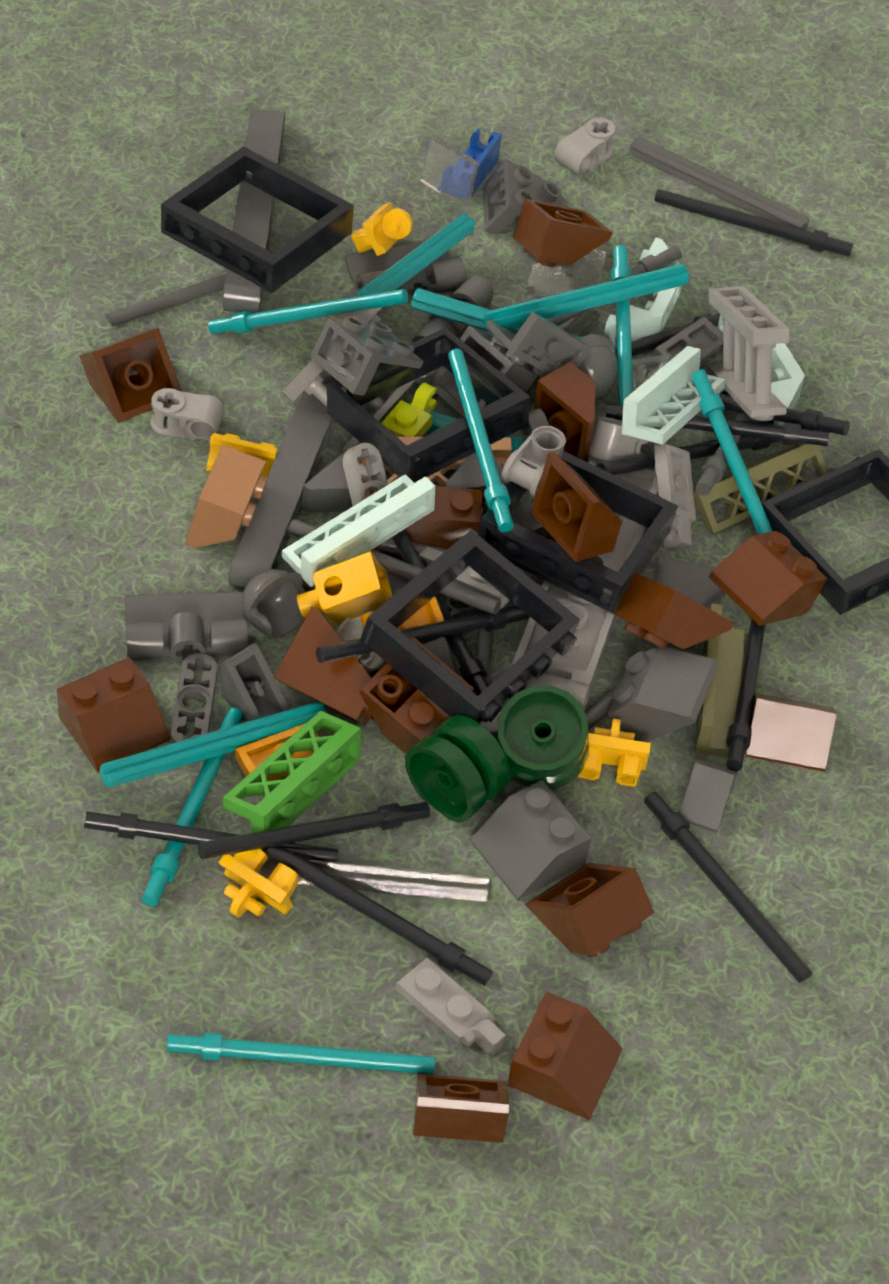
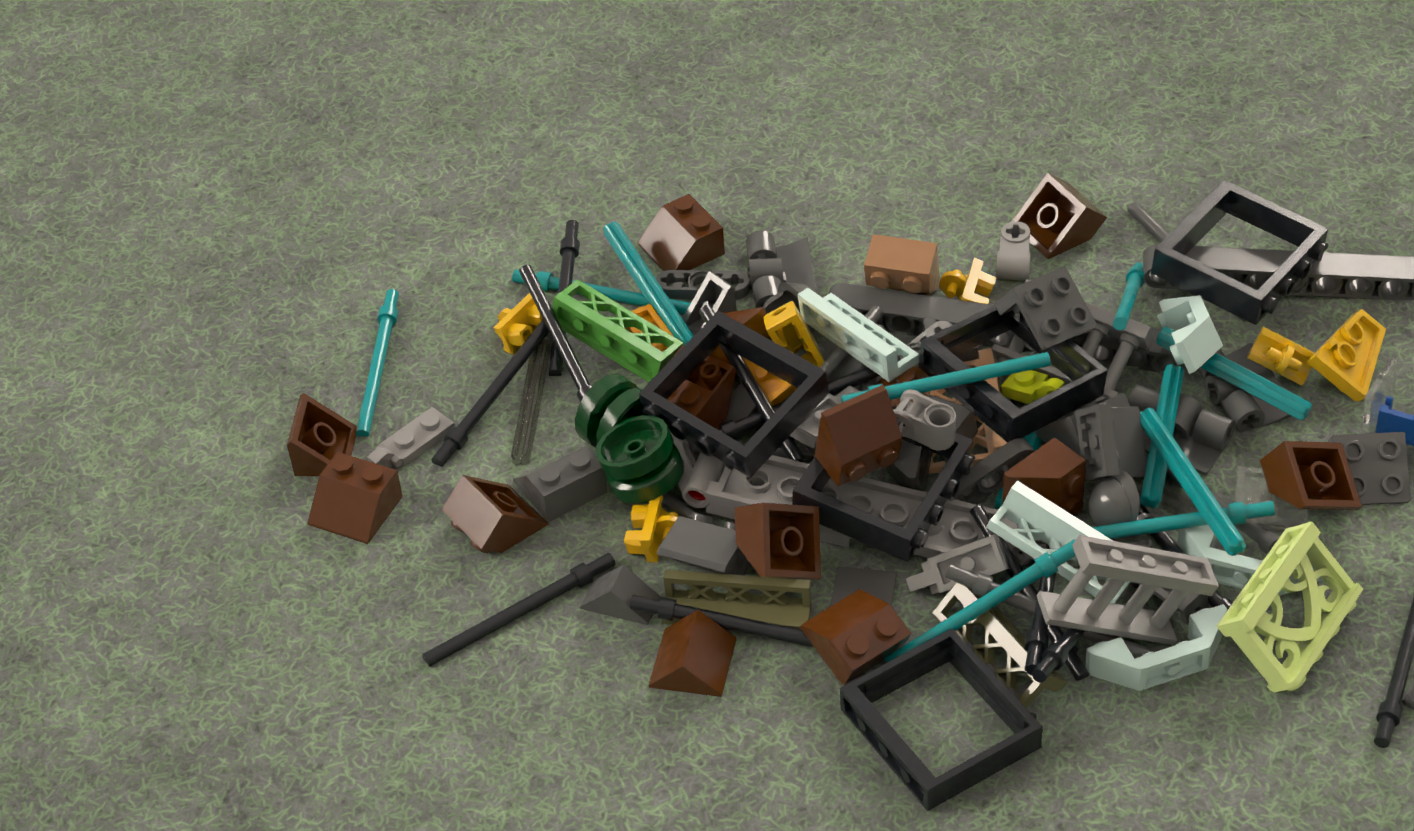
camera: 100 degrees right, 5 degrees down
(372, 187) = (1351, 355): none -> yellow wing
(372, 257) = (1194, 331): none -> light aqua slope
(729, 263) = (1293, 553): none -> yellowish green fence

